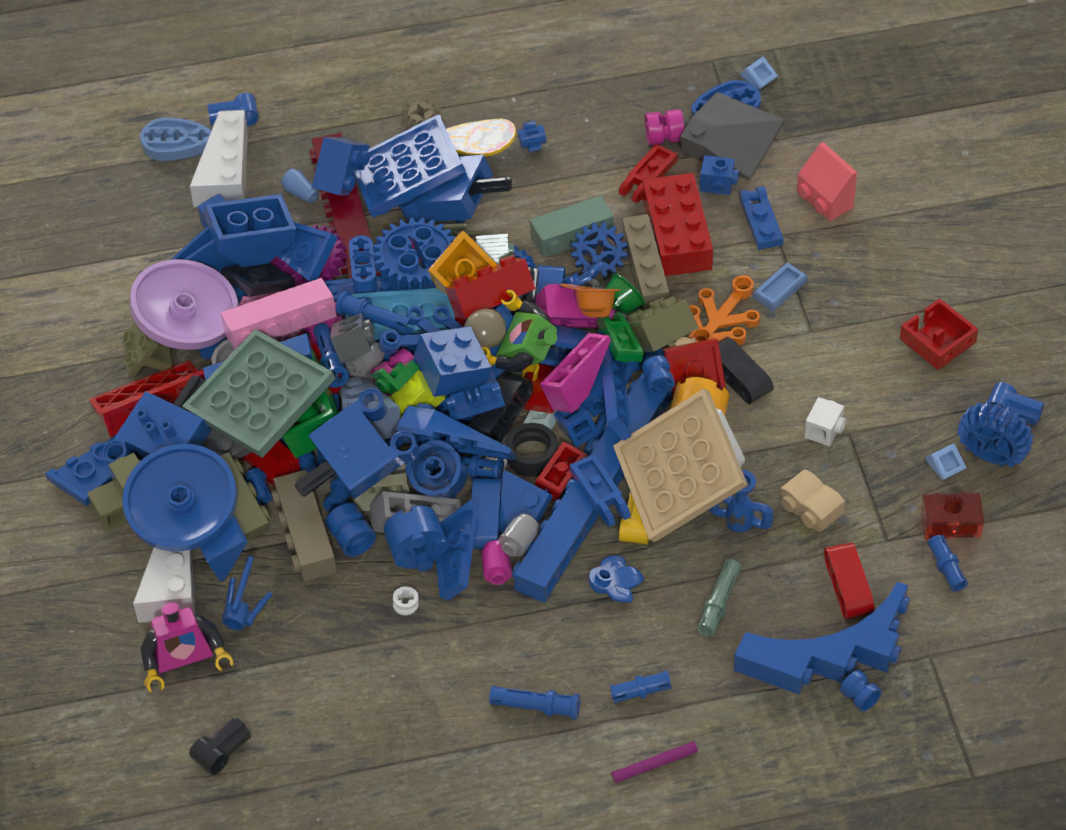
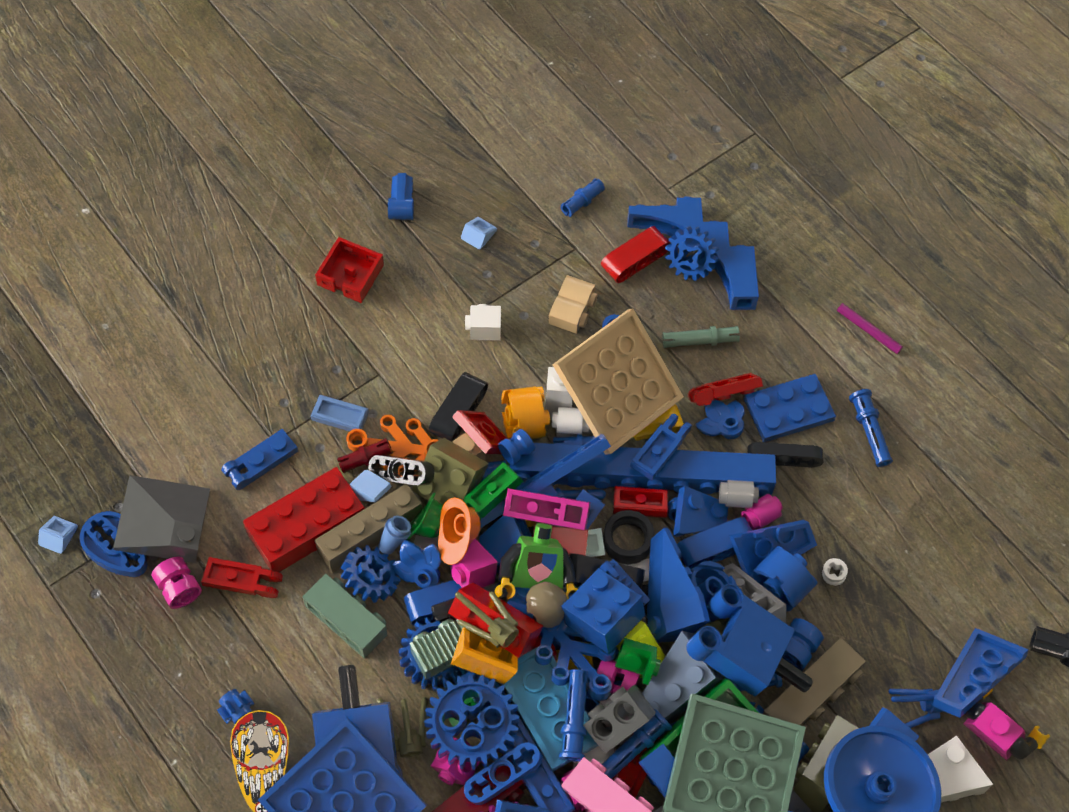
camera: 120 degrees left, 10 degrees up
(238, 652) = (976, 671): none -> blue wing
(467, 266) = (502, 630): none -> olive plant
(546, 610) = (790, 454): none -> black beam
(598, 643) = (789, 408): none -> blue plate
(627, 263) = (394, 533): none -> medium blue cone
(640, 687) = (814, 359): blue pin -> none
(646, 590) = (724, 388): none -> red hinge
(682, 269) = (369, 486): none -> light blue slope
(682, 289) = (410, 466): none -> beam
(718, 175) = (226, 507): blue brick -> none
(722, 285) = (363, 455): none -> dark red pin
(819, 617) = (698, 263): none -> blue gear
(827, 183) = (205, 407): coral slope -> none
(860, 690) = (733, 212): blue wheel -> none
(952, 515) = (546, 214): clear red brick -> none
(995, 434) = (449, 192): blue gear -> none

